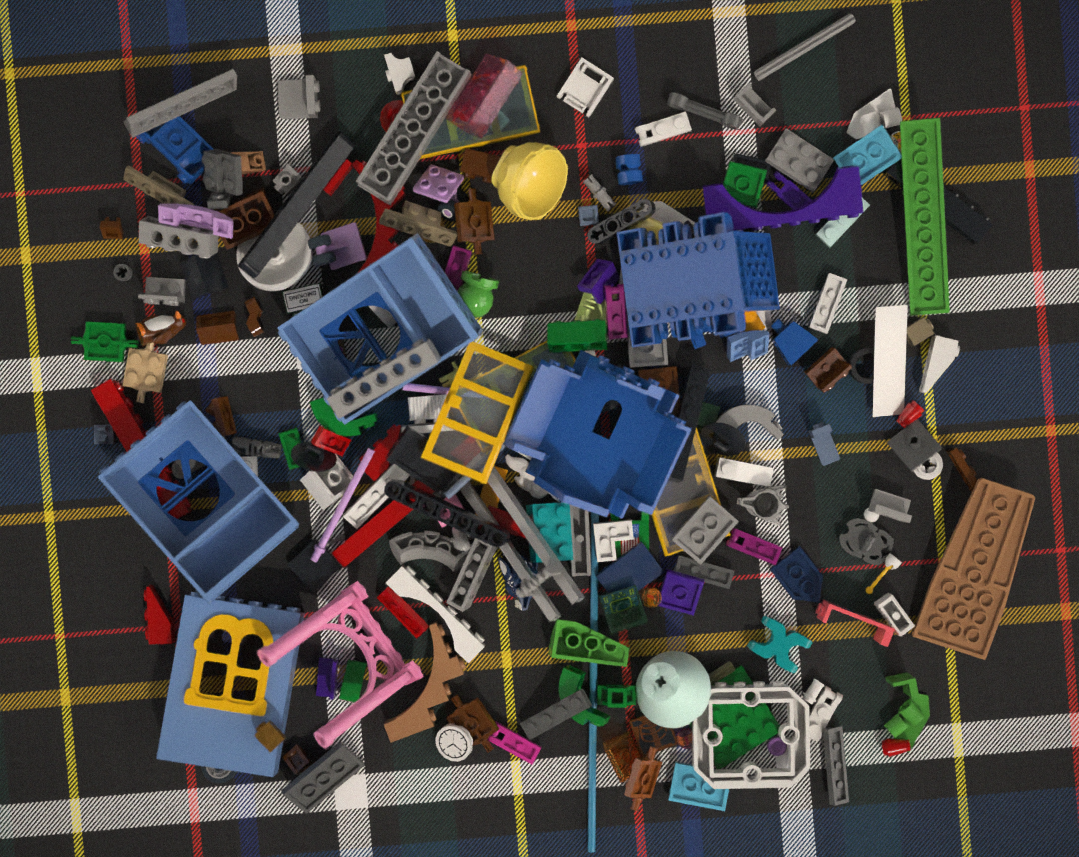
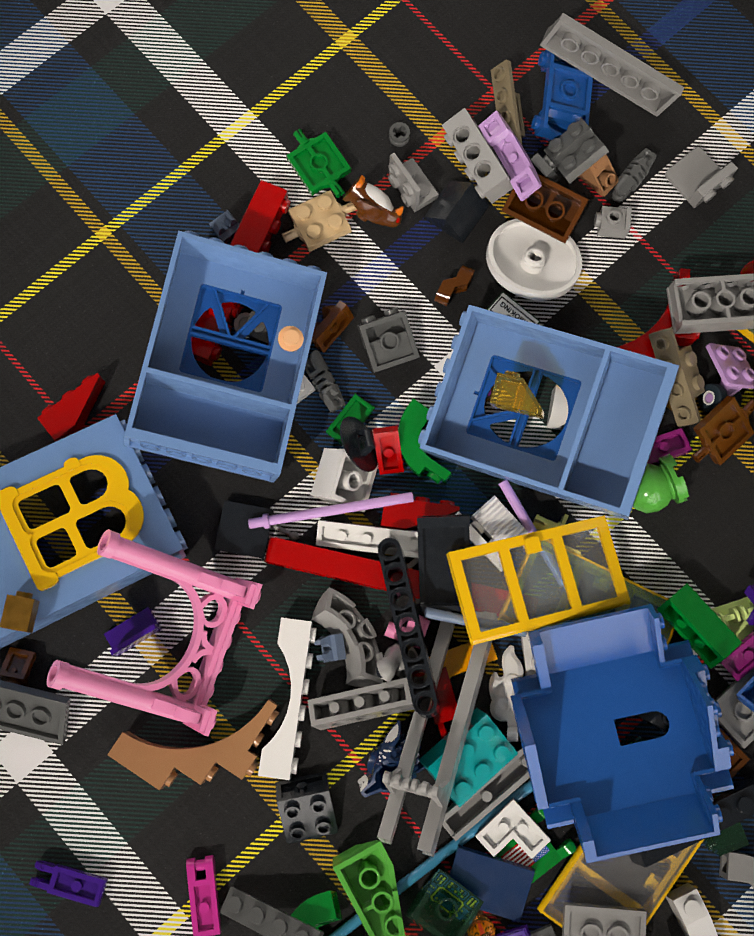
camera: 55 degrees right, 10 degrees down
(111, 229) = (433, 94): reddish brown tile -> none
(217, 328) = (414, 258): reddish brown panel -> none
(217, 455) = (290, 338): none -> light nougat plate
(259, 387) = (388, 339): none -> dark grey plate
(266, 140) = (633, 175): none -> dark grey hinge
(296, 204) = (599, 243): black beam -> none
(338, 177) = (655, 267): red tile -> none
(338, 247) = (587, 313): lavender plate -> none
(342, 405) = (564, 479): light grey brick -> none
(352, 681) = (147, 662): green slope -> none
(355, 346) = (514, 395): none -> clear yellow slope
(403, 612) = (262, 660): red plate -> none
(426, 564) = (332, 648): none -> sand blue tile
(449, 813) = (71, 883): none -> dark purple hinge
(454, 742) = (157, 827): white tile -> none
(475, 719) = (193, 832): reddish brown plate -> none
(508, 648) = (306, 807): none -> black bracket
(723, 439) = (717, 876): black shield -> none

